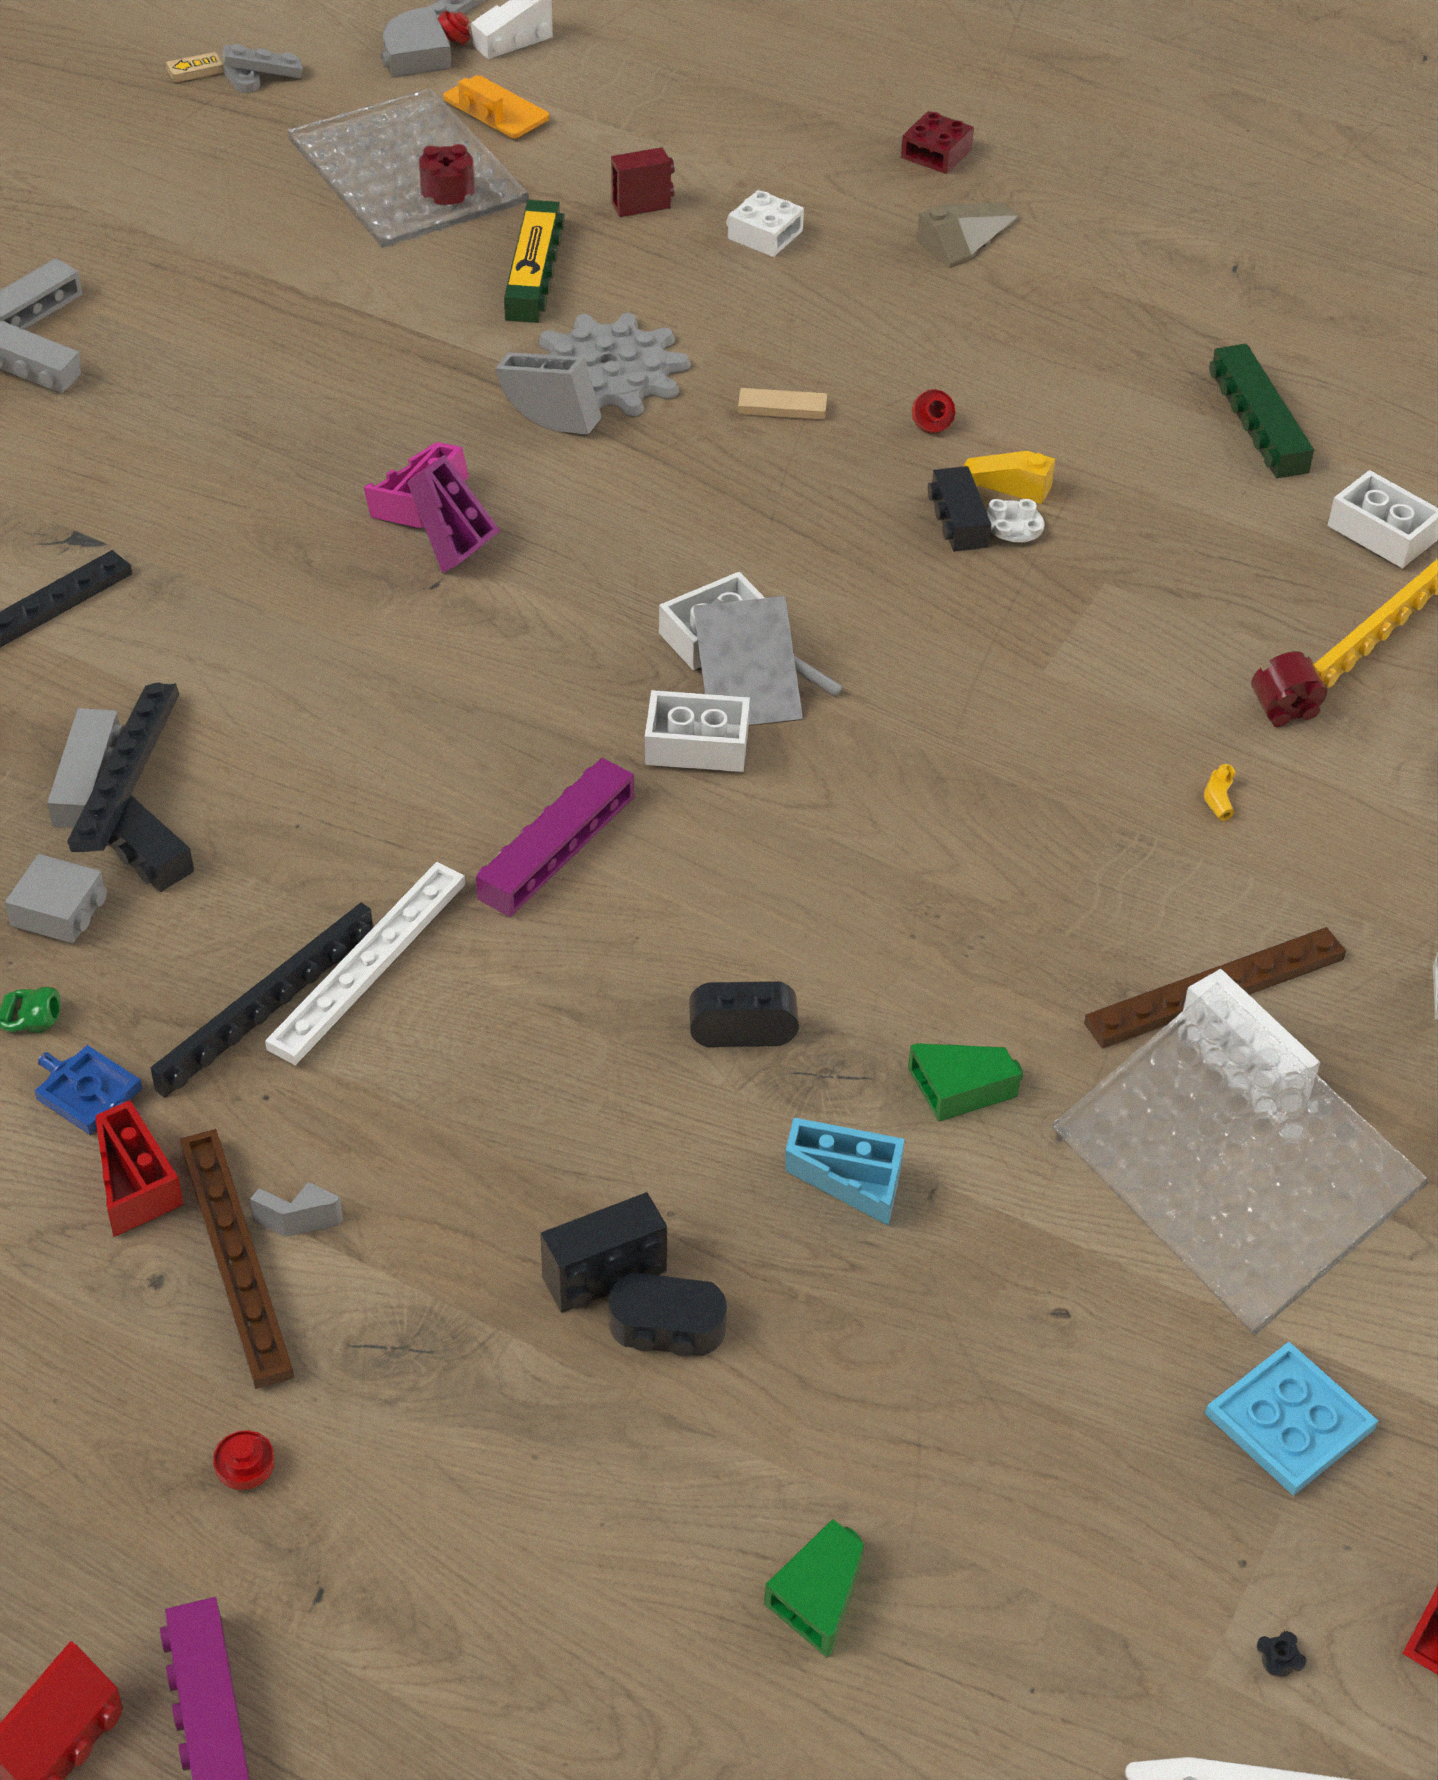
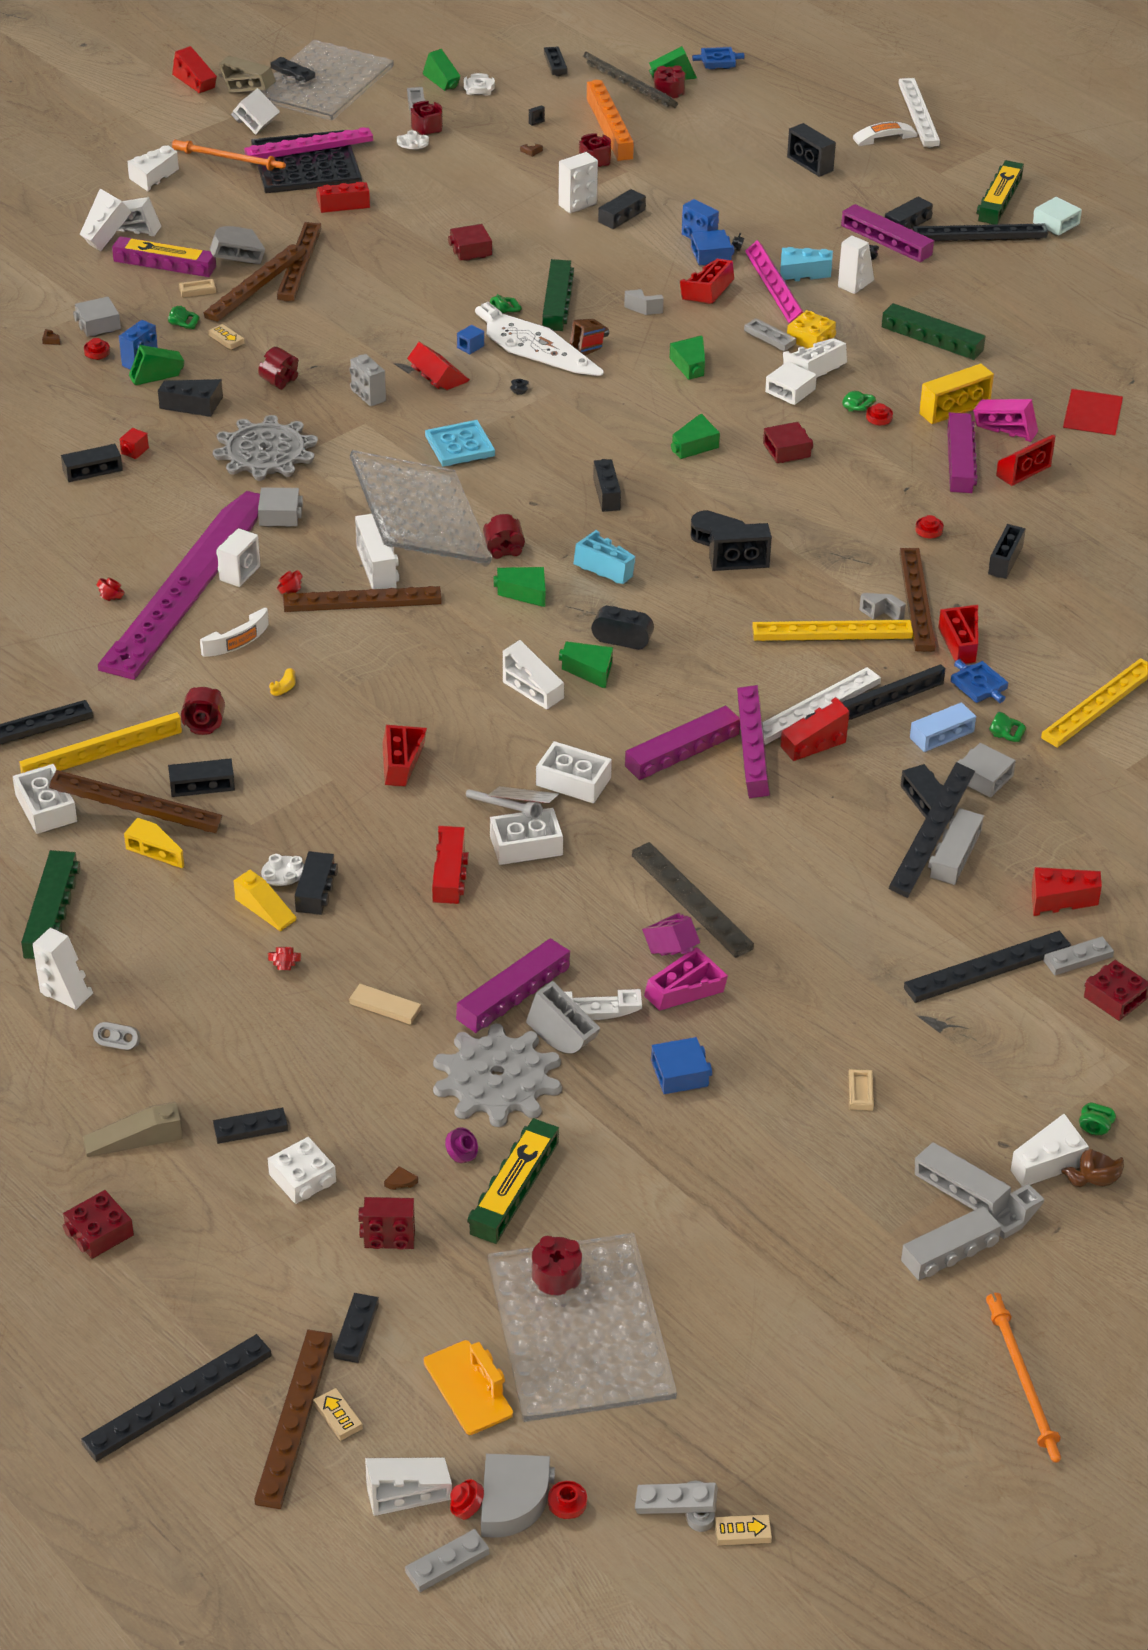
camera: 160 degrees left, 5 degrees down
(68, 1411) = (1006, 551): none -> black brick
(139, 973) = (942, 727): none -> light blue brick
(163, 438) = (861, 1090): none -> tan tile
(339, 888) = (818, 732): none -> red wedge
(363, 46) = (567, 1499): none -> red plate
(375, 1133) = (832, 630): none -> yellow plate
(390, 396) = (680, 1065): none -> blue brick
(442, 838) = (753, 741): none -> magenta brick
(456, 616) = (692, 899): none -> clear smoke plate
(526, 454) = (610, 1007): none -> white slope
(607, 274) = (461, 1145): none -> magenta plate
(608, 69) = (338, 1414): none -> tan tile
(610, 1621) = (787, 442): none -> dark red brick
(629, 127) = (356, 1327): none -> black plate
(632, 439) = (513, 985): none -> magenta brick
(647, 63) = (293, 1420): none -> reddish brown plate
(657, 246) = (401, 1178): none -> reddish brown tile
(762, 55) = (175, 1398): none -> black plate
(773, 944) = (587, 661): none -> green slope
(797, 560) = (449, 865): none -> red wedge
(844, 879) = (531, 676): none -> white wedge
(851, 259) = (250, 1125): none -> black plate
(935, 1370) = (607, 485): none -> black brick
(966, 699) = (400, 752): none -> red wedge
(1051, 1155) = (504, 536): none -> dark red brick
(1070, 297) = (117, 1035): none -> light grey plate
(1171, 314) = (58, 969): none -> white wedge
(1200, 509) = (151, 841): none -> yellow slope
(1215, 608) = (201, 777): none -> black brick
(1261, 527) = (135, 801): none -> reddish brown plate
(1349, 966) = (290, 582): none -> red plate
(1365, 826) = (234, 639): none -> white slope

